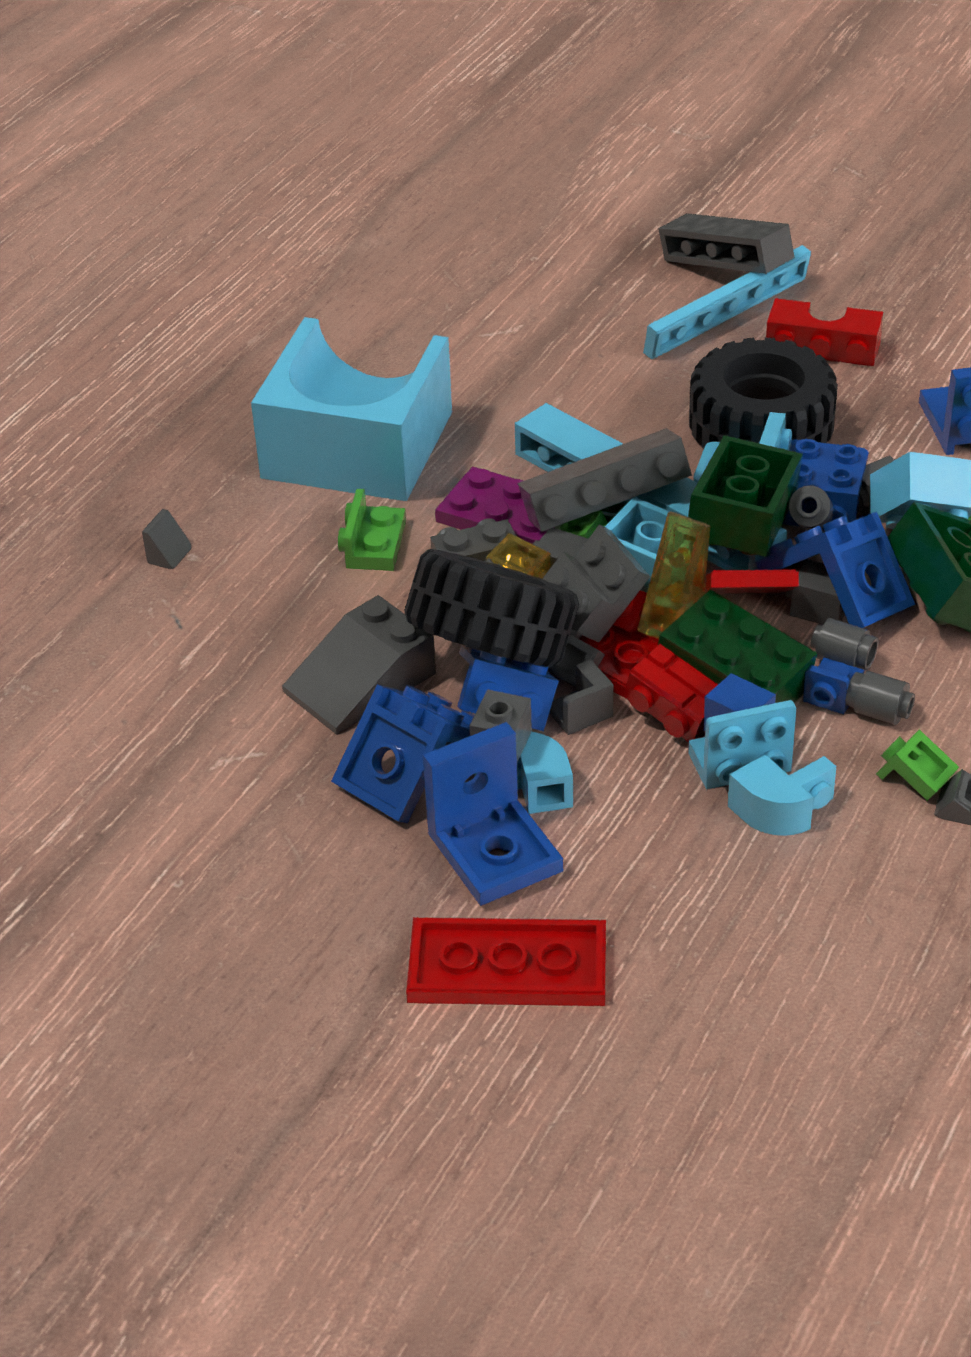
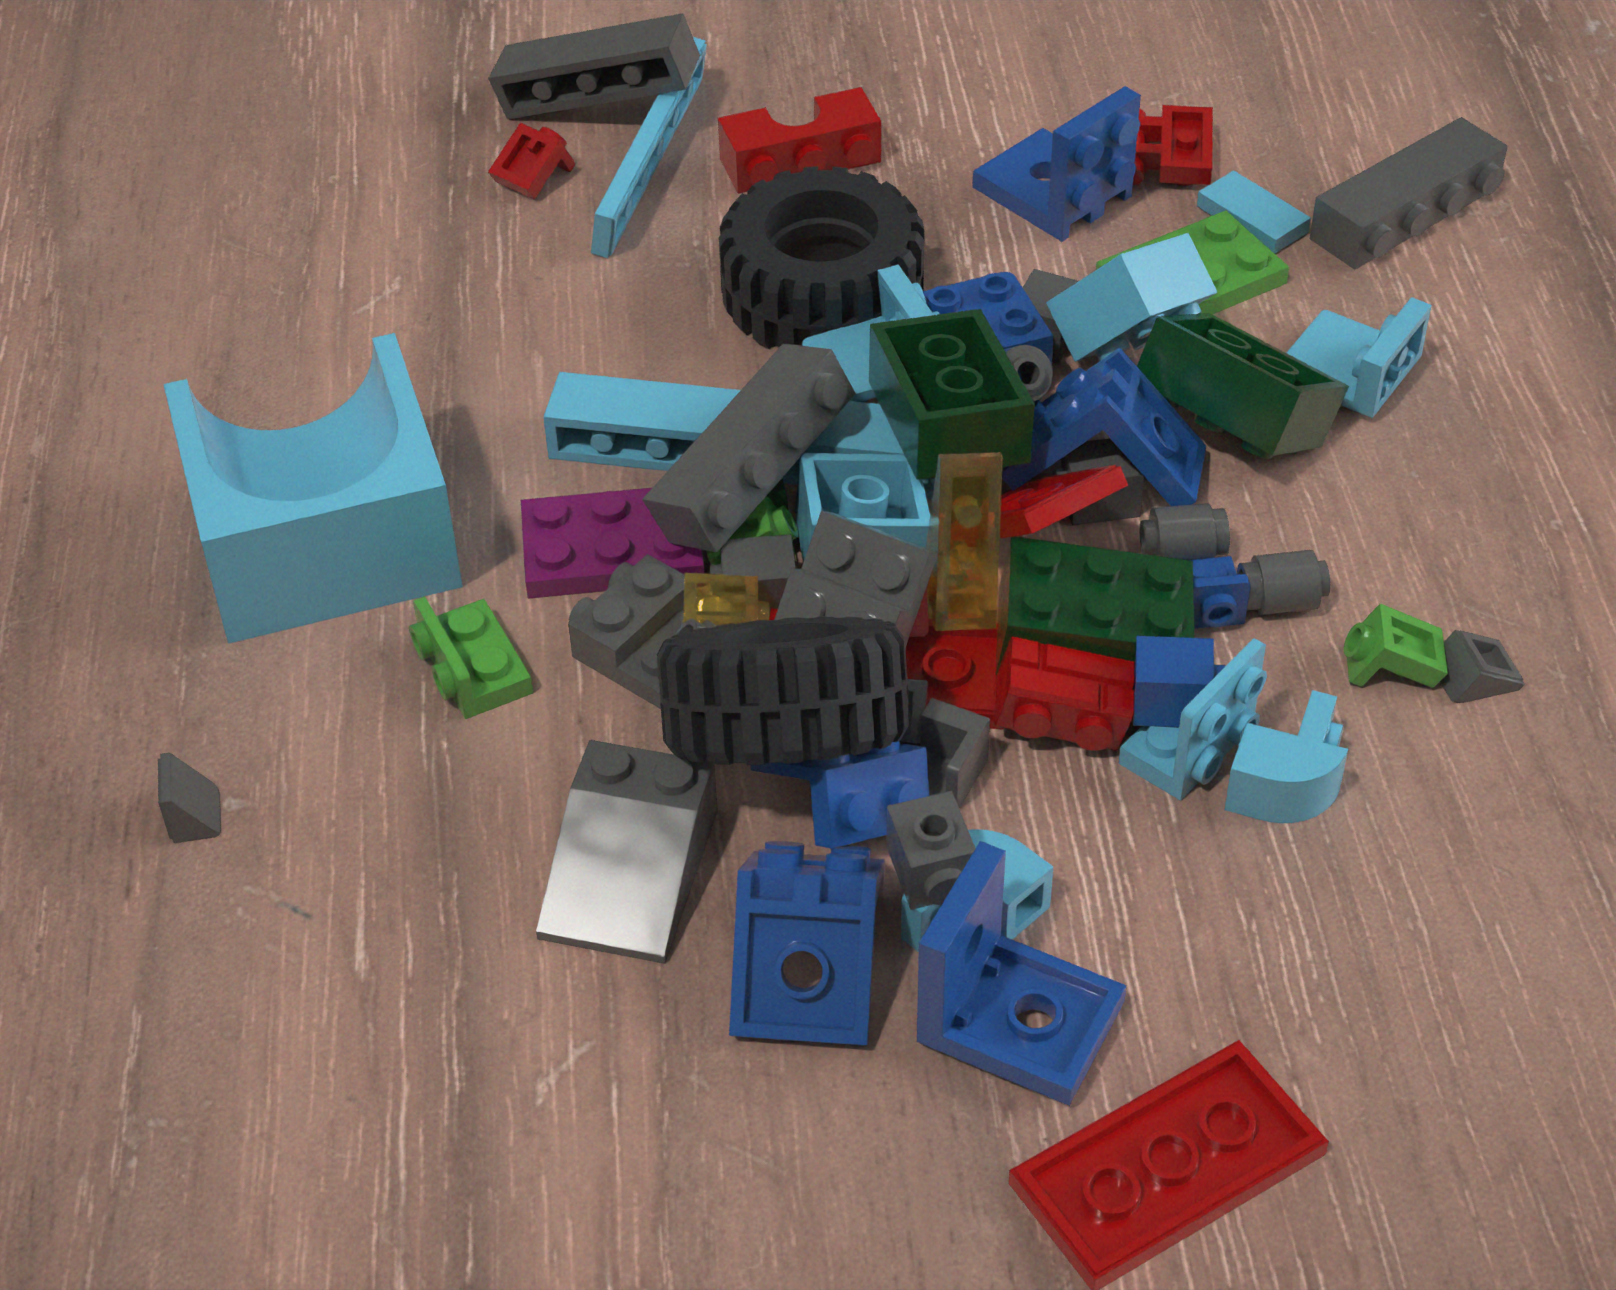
camera: 35 degrees left, 5 degrees up
(648, 284) = (530, 159): none -> red bracket

